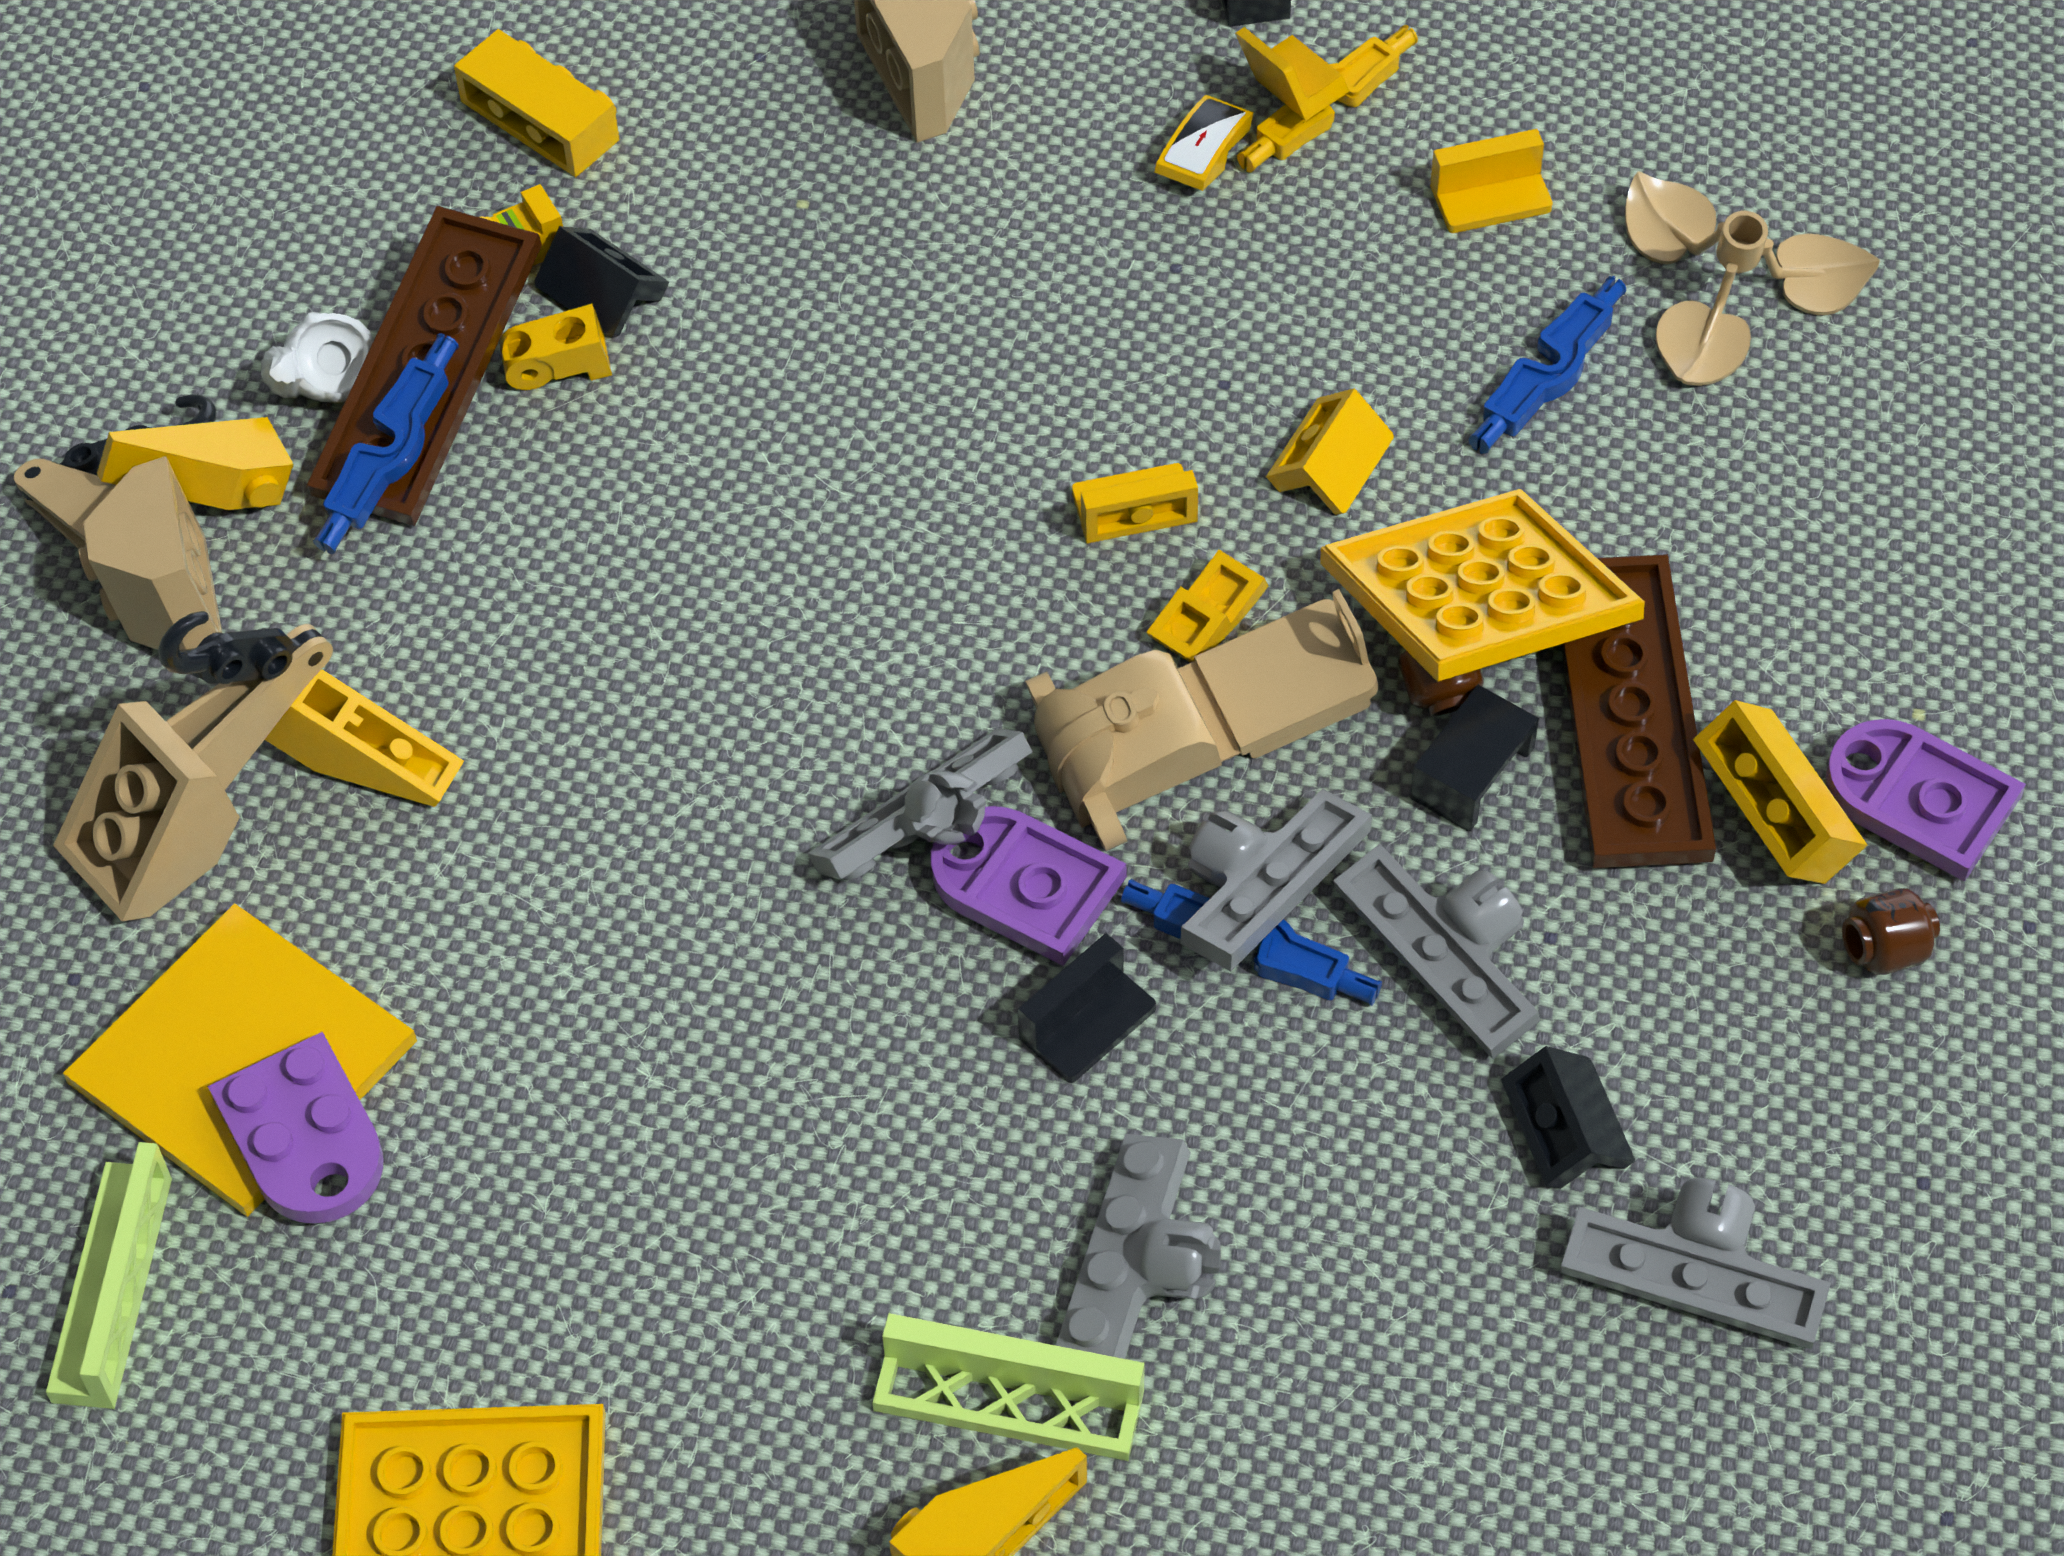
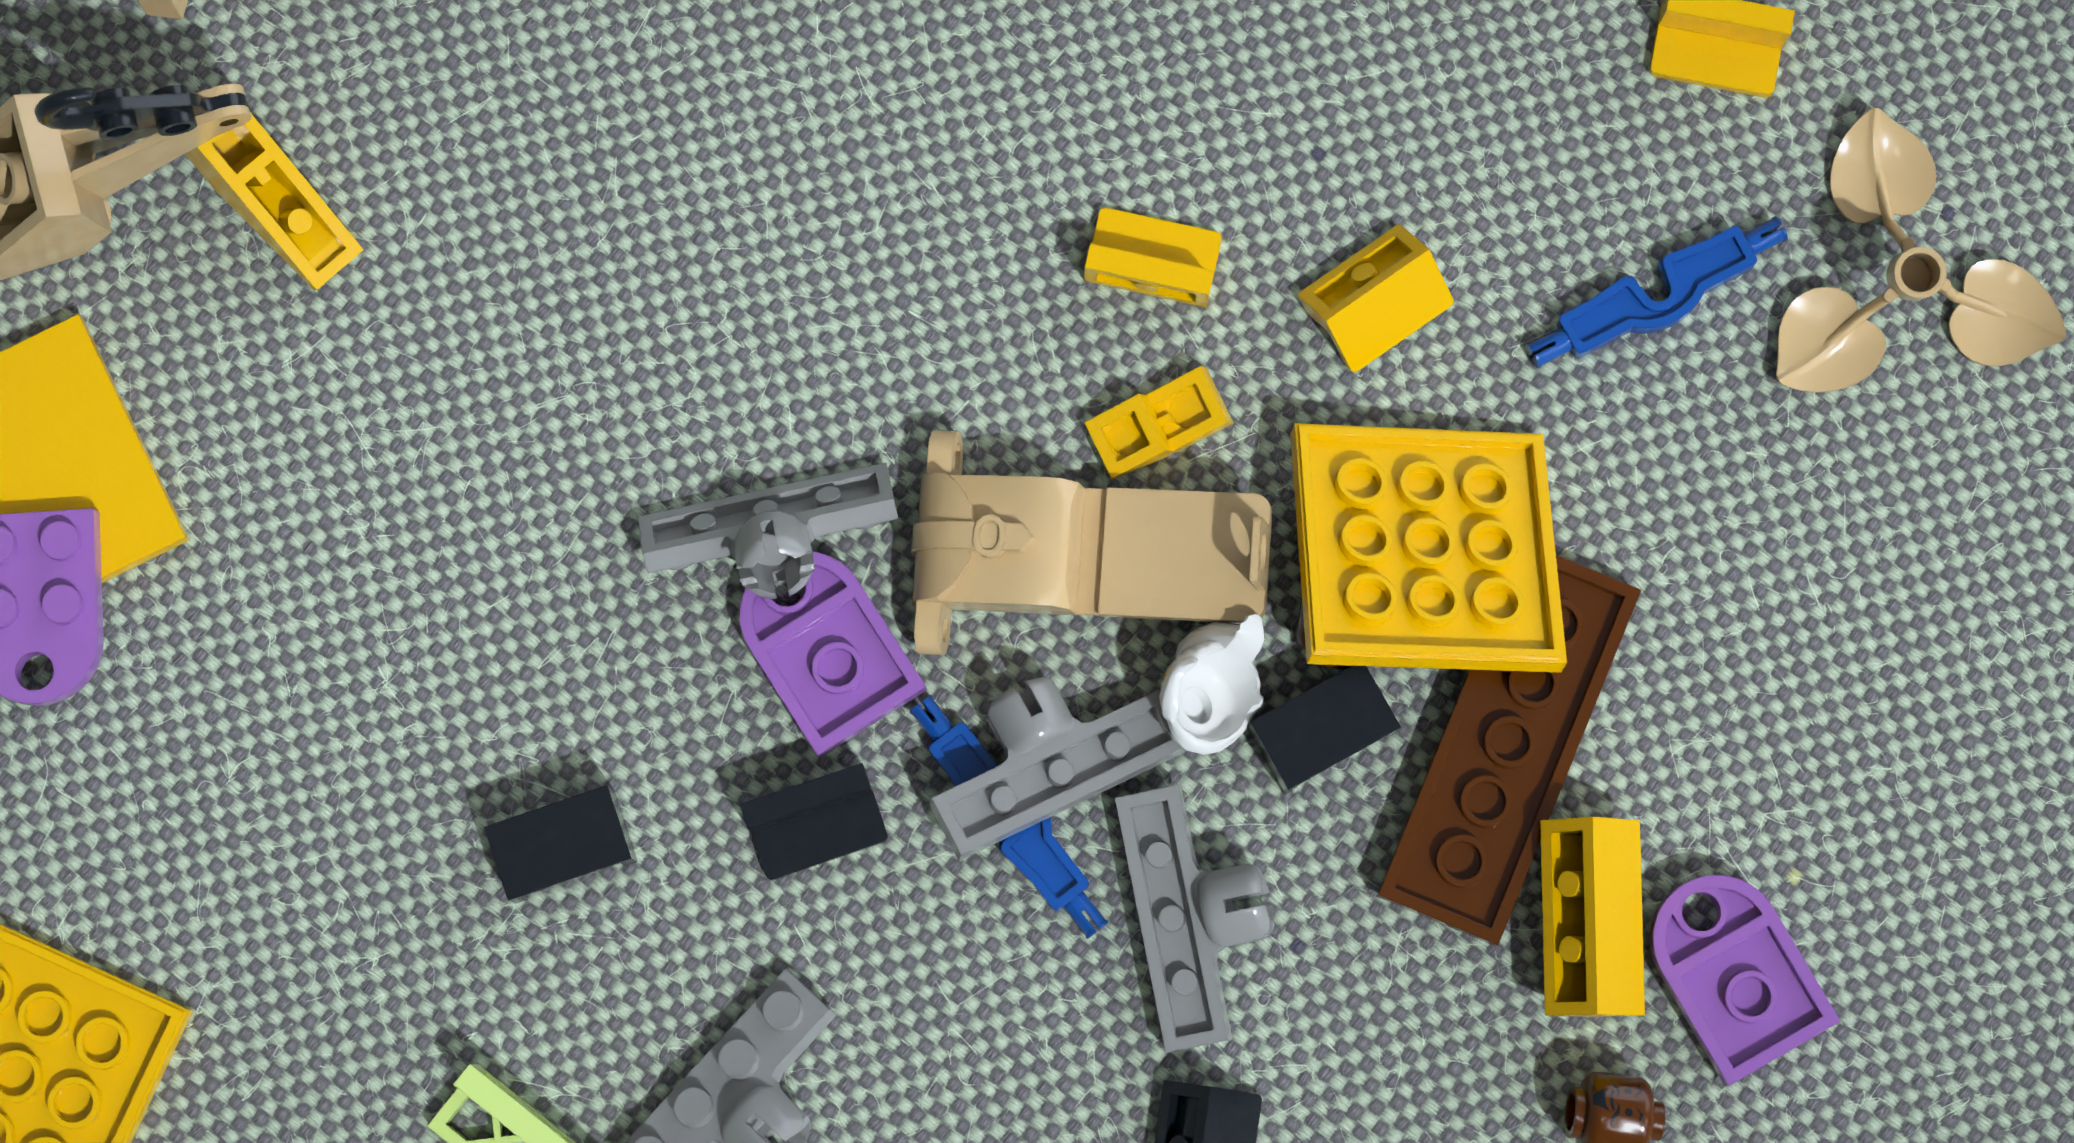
camera: 25 degrees right, 25 degrees up
(871, 1115) = (560, 843): none -> black panel
(1366, 753) = (1213, 685): none -> white hair

